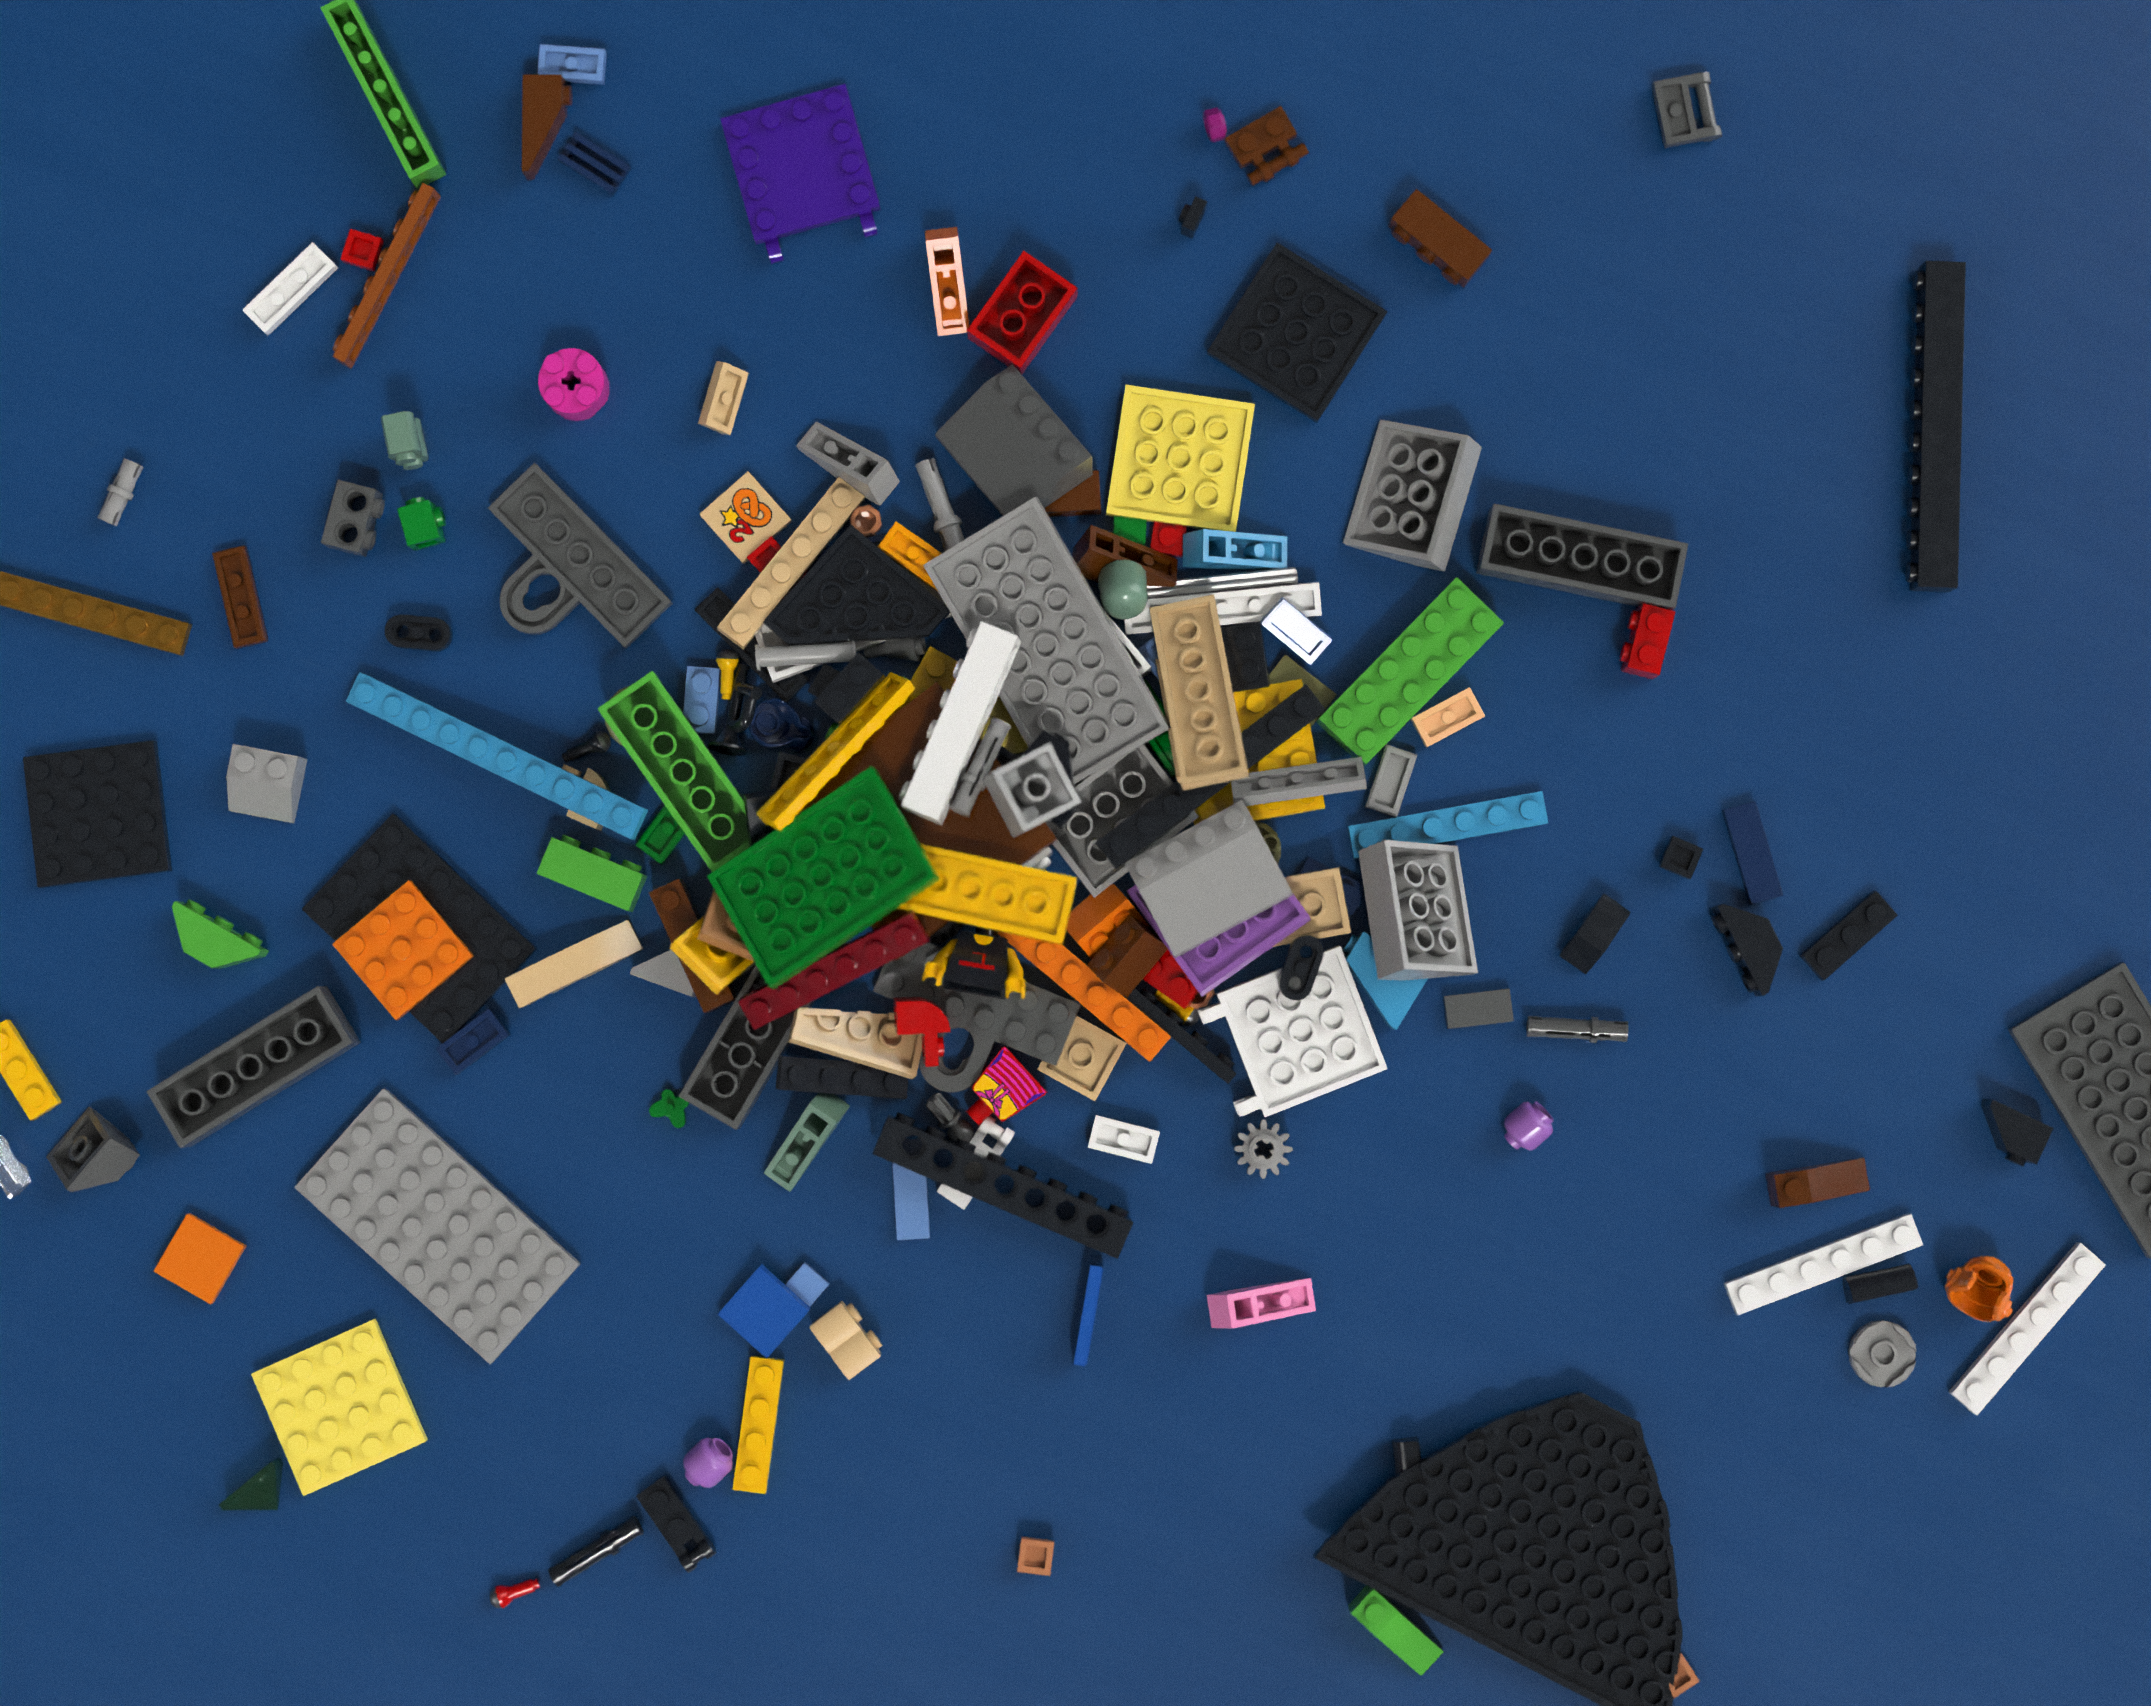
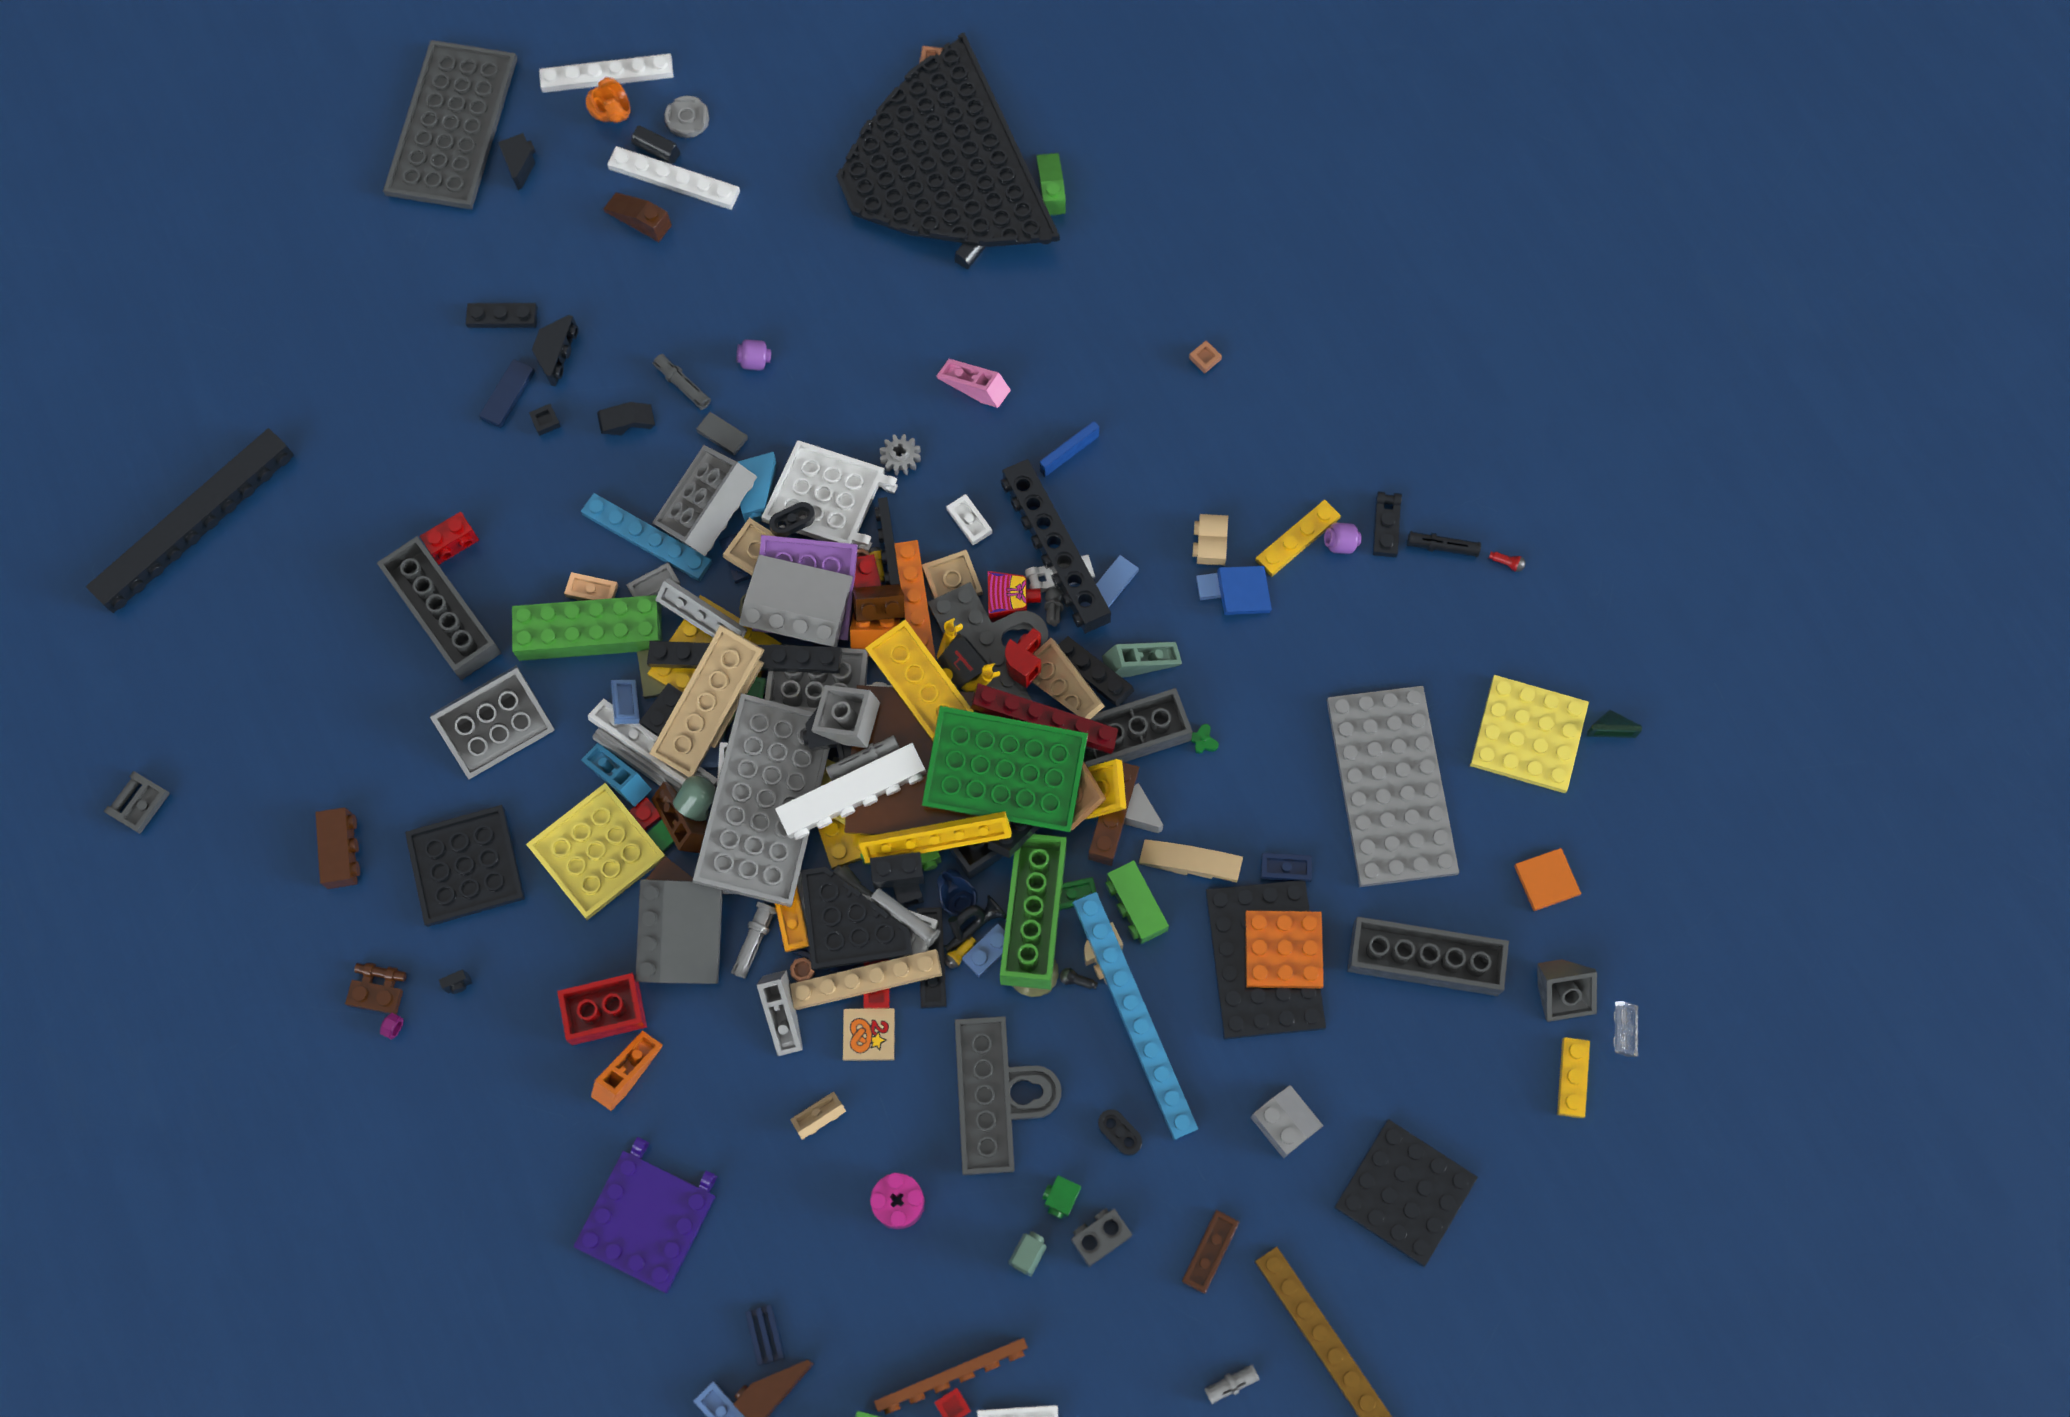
camera: 140 degrees left, 15 degrees down
(213, 939) = (1392, 1052): bright green slope -> none

